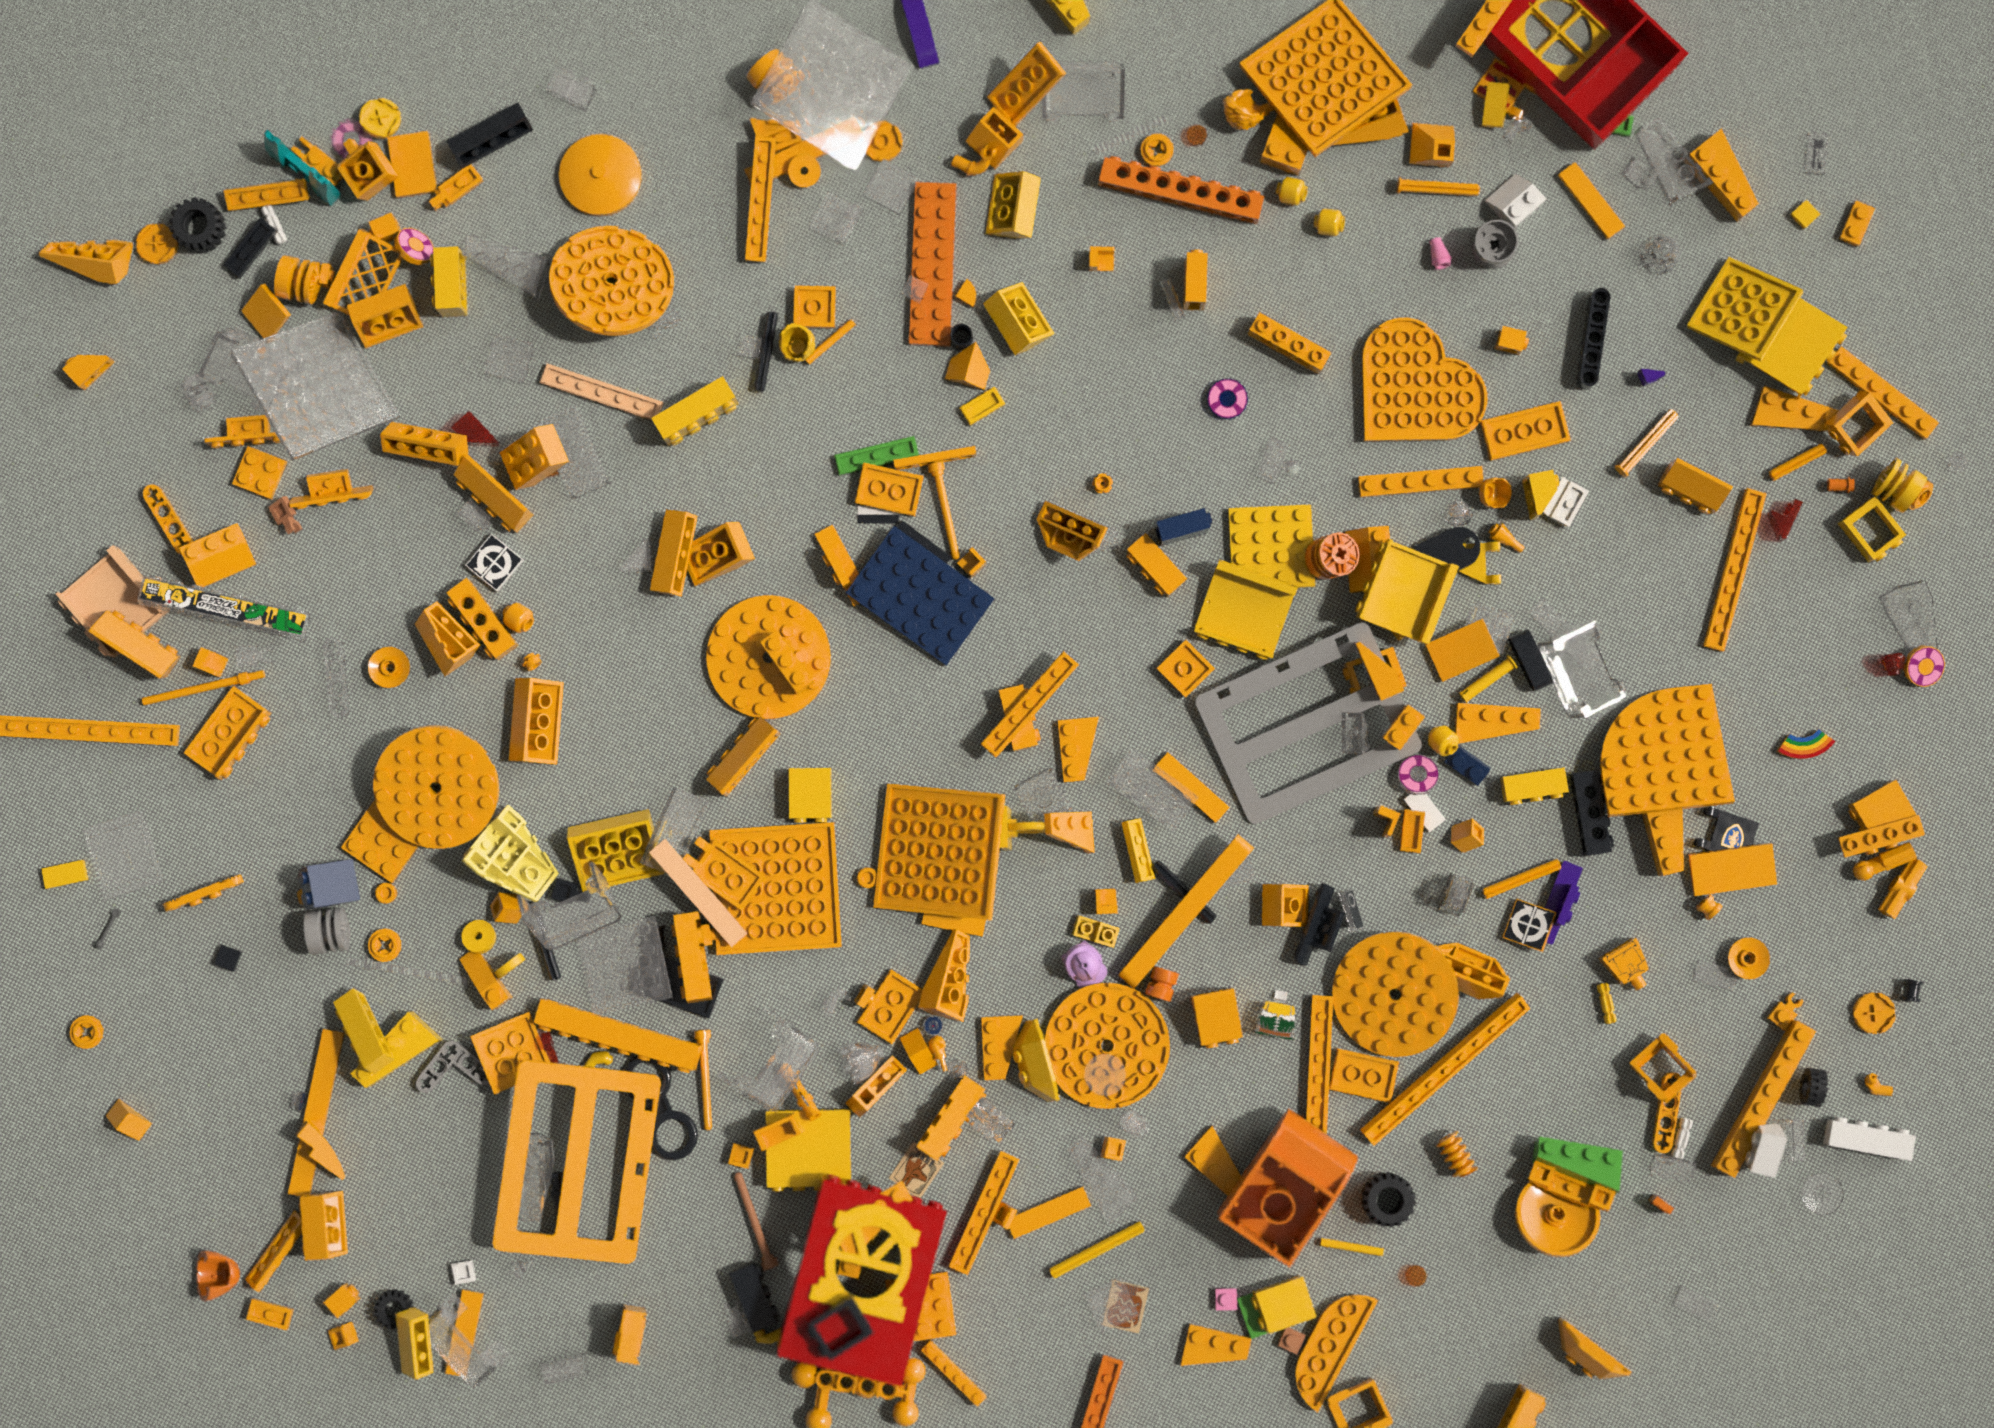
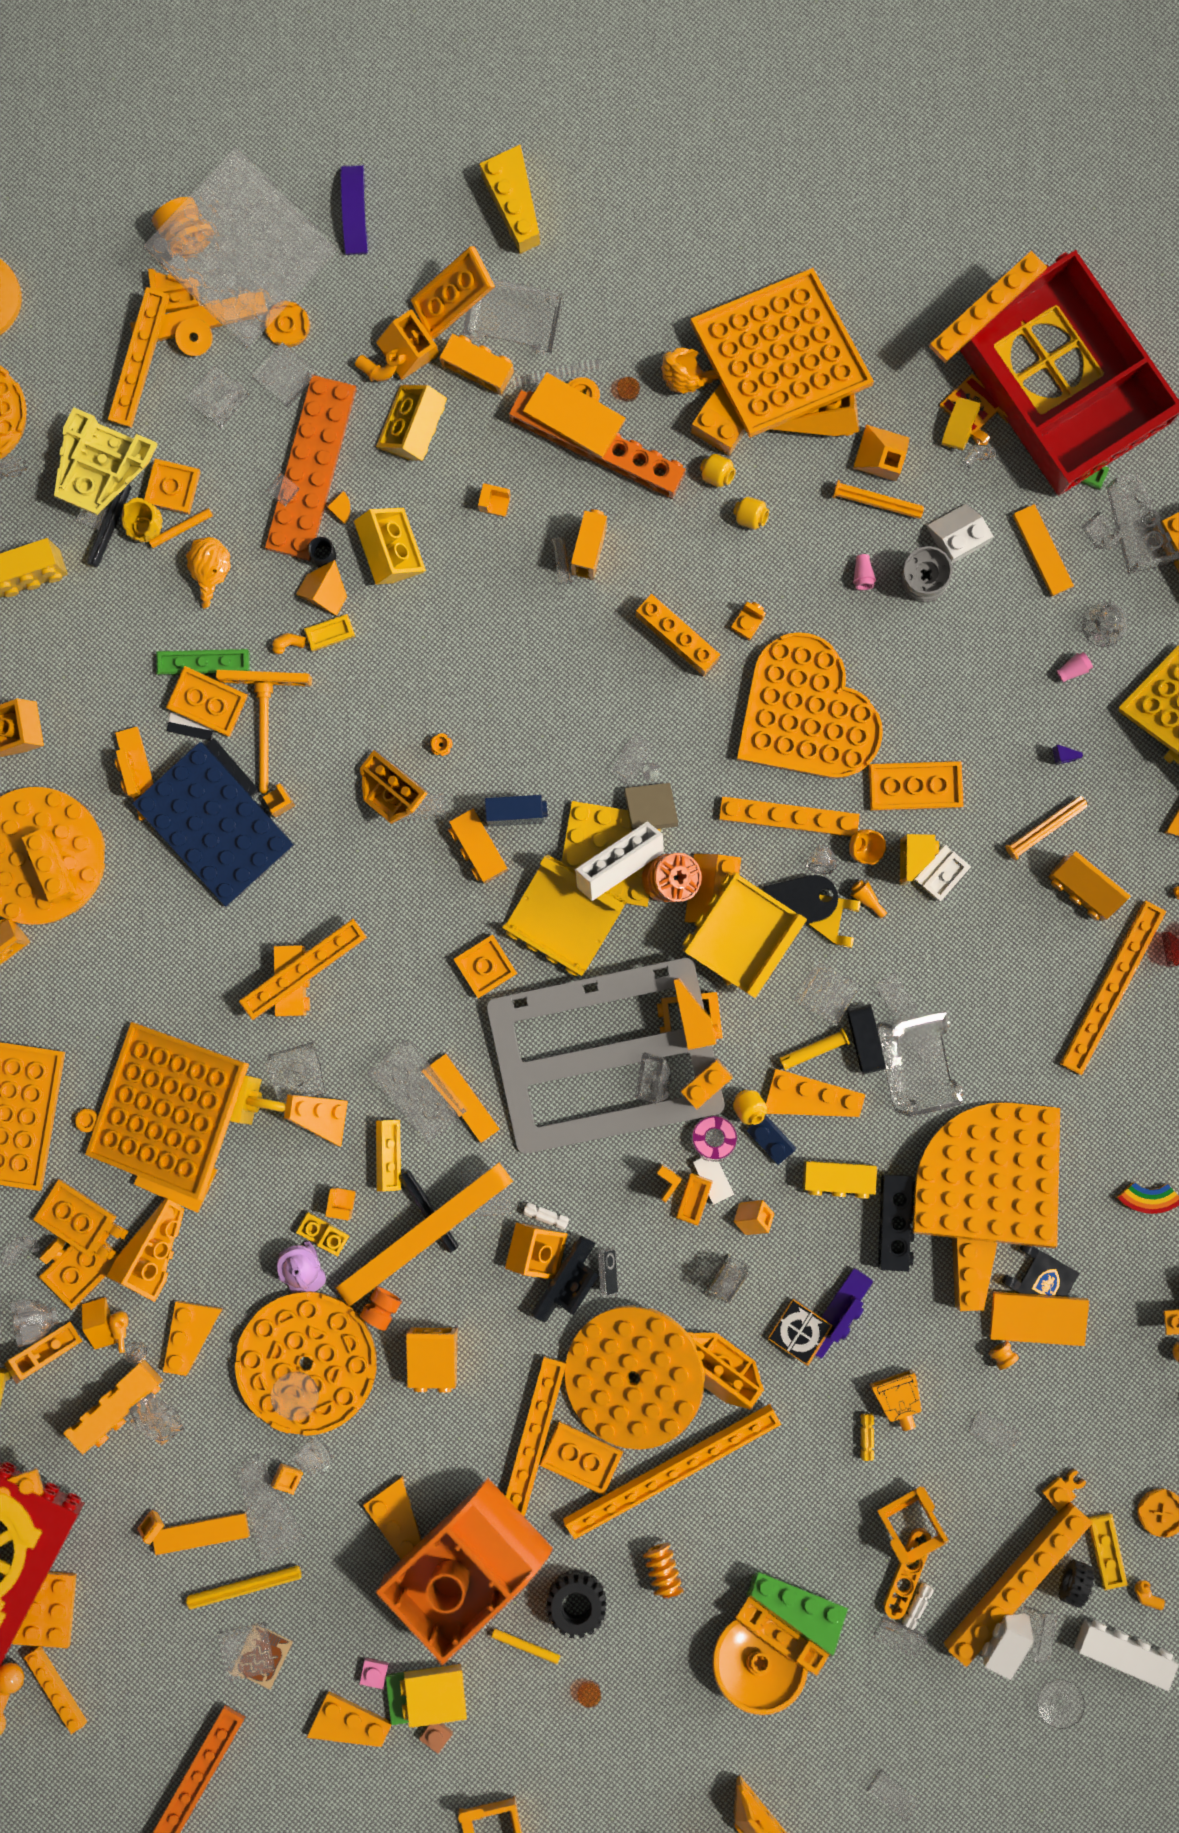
camera: 15 degrees right, 0 degrees up
(748, 300) = (97, 462): none -> light yellow wedge
(810, 794) = (44, 1016): yellow brick -> none
(864, 369) = (208, 565): none -> light orange hair
(881, 965) = (79, 1221): none -> light orange tile
(916, 1170) = (64, 1459): sticker -> none
(933, 1025) = (121, 1298): dark blue tile -> none
(947, 419) = (285, 640): none -> light orange arm
(984, 1212) = (129, 1518): light orange plate -> none
(1034, 1062) = (219, 1364): yellow wedge -> none
(1059, 141) = (477, 363): none -> light orange brick
(1076, 744) = (346, 1026): light orange wing -> none
(1157, 170) = (574, 415): none -> light orange tile
(1227, 399) = (597, 681): tile -> none
(1277, 1018) = (498, 1374): torso -> none
(1285, 550) = (619, 861): none -> white brick
(1286, 873) = (546, 1216): none -> white axle
(1299, 498) = (651, 804): none -> dark tan tile
(1330, 1346) = (477, 1752): light orange plate -> none
(1348, 316) = (749, 620): none -> light orange bracket
(1462, 650) = (793, 1011): light orange tile -> none
(1511, 340) = (922, 683): light orange brick -> none
(1521, 878) = (803, 1278): light orange axle -> none
(1587, 346) = (1016, 690): black beam -> none
(1642, 296) = (1076, 666): none -> bright pink cone
(1660, 1204) = (878, 1676): orange tile -> none
(1758, 955) = (1047, 1422): light orange dish -> none
(1834, 1056) = (1107, 1551): none -> yellow tile

